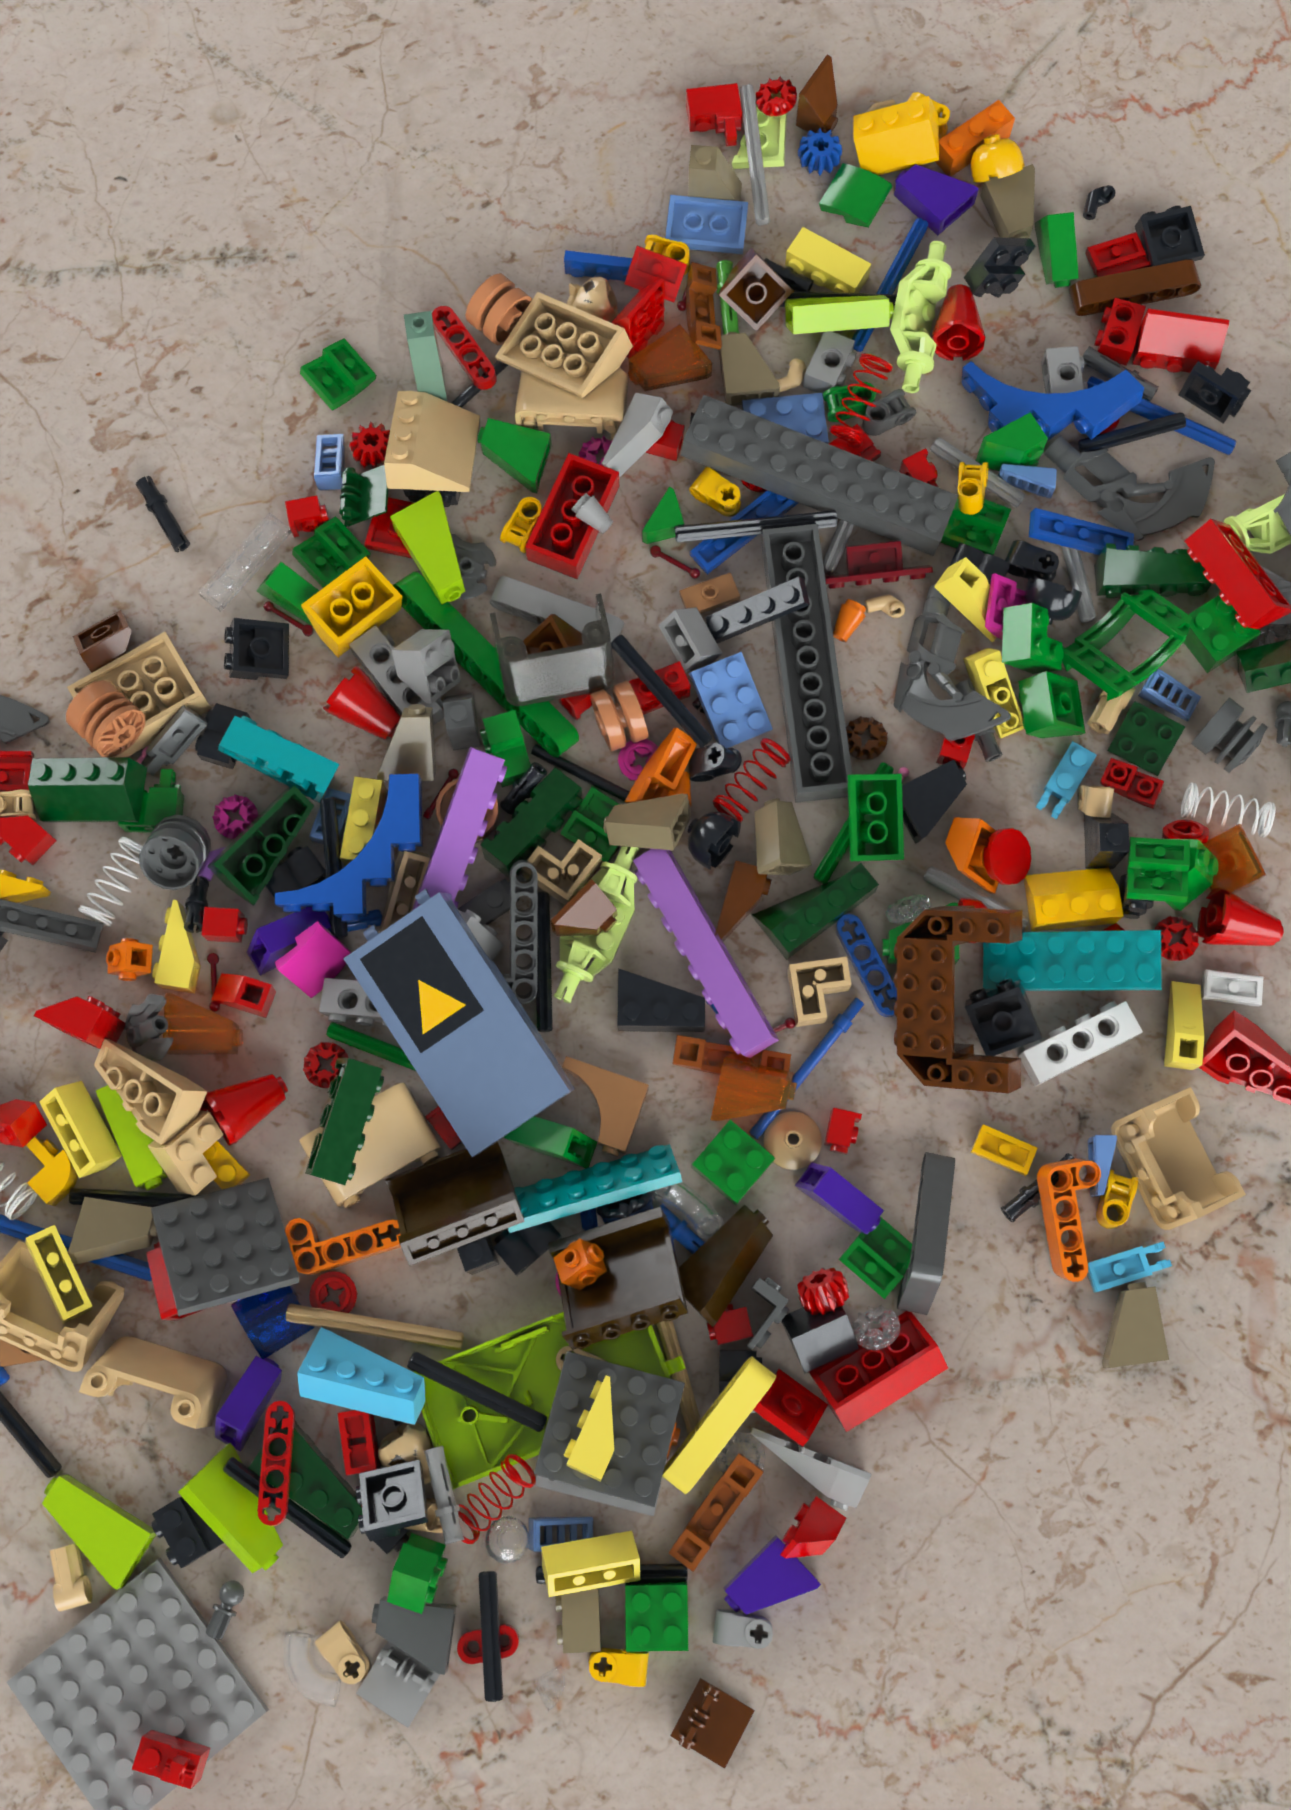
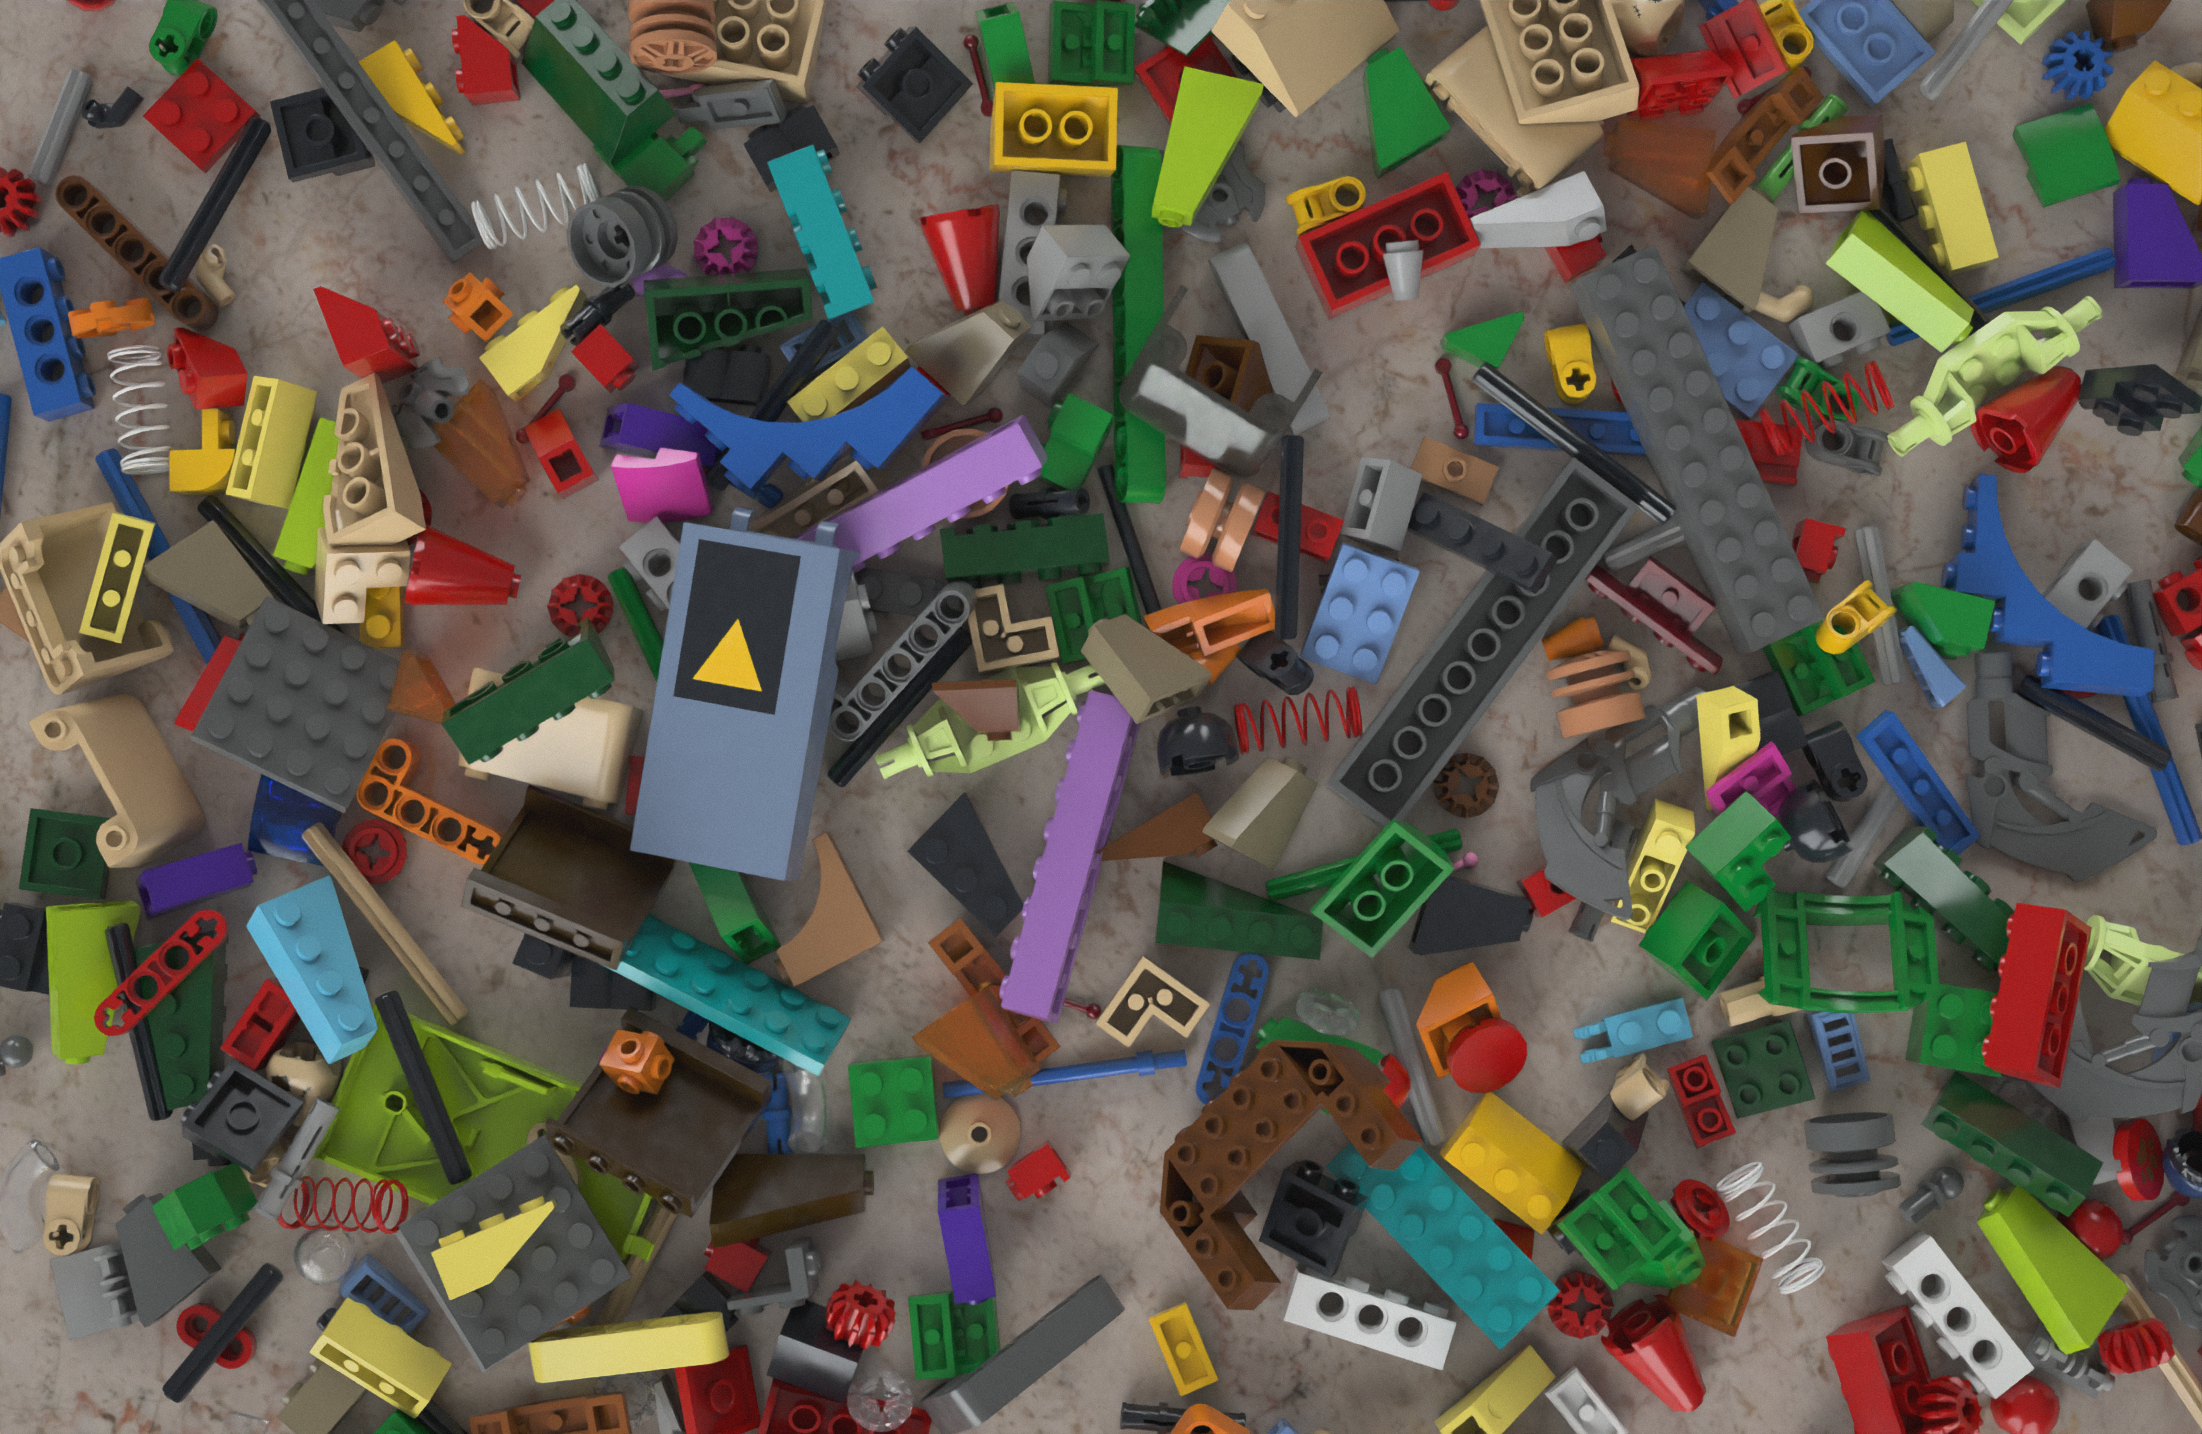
camera: 40 degrees right, 10 degrees up
(163, 1456) = (64, 855): none -> dark green plate
(284, 1185) = (419, 688): none -> clear orange slope
(884, 632) = (1595, 693): none -> nougat wheel

